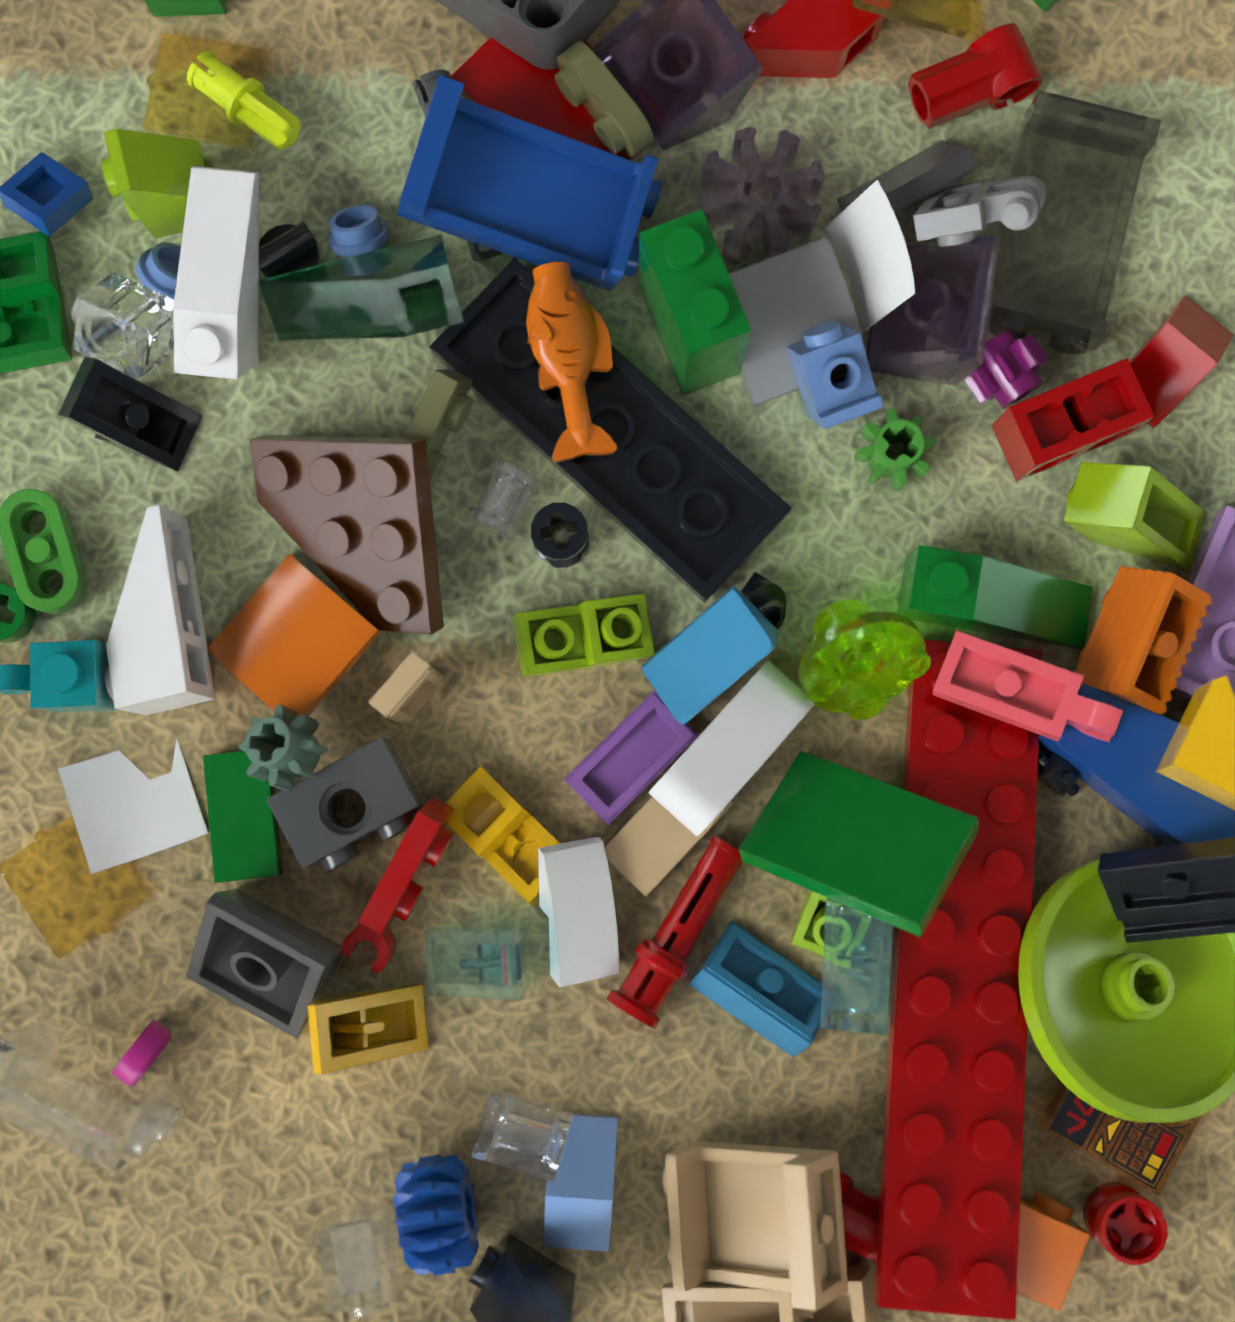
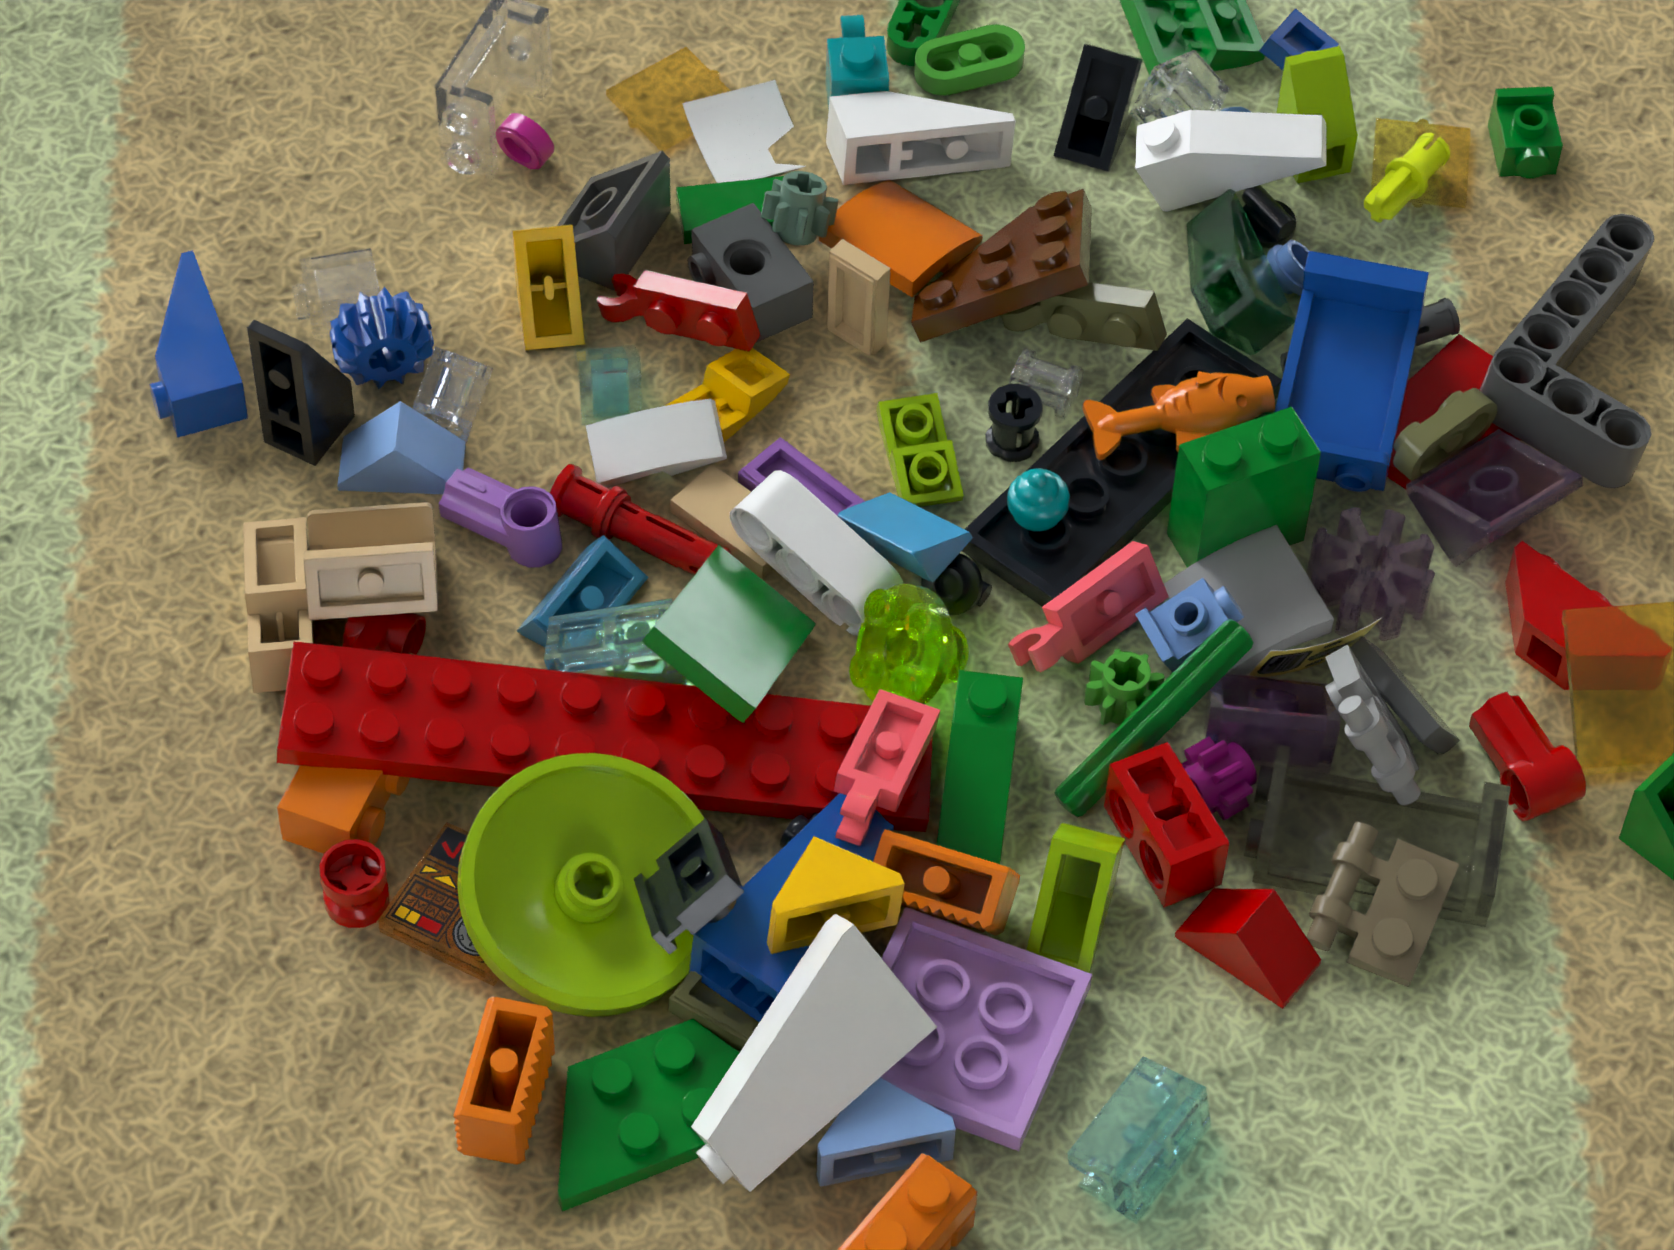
camera: 85 degrees right, 30 degrees down
(663, 1079) = (517, 519): none -> medium lavender piece
(679, 515) = (1038, 499): none -> teal plate
(802, 476) = (1093, 609): none -> coral plate
(946, 419) = (1156, 714): none -> green axle
(1155, 215) = (1401, 912): none -> dark tan plate

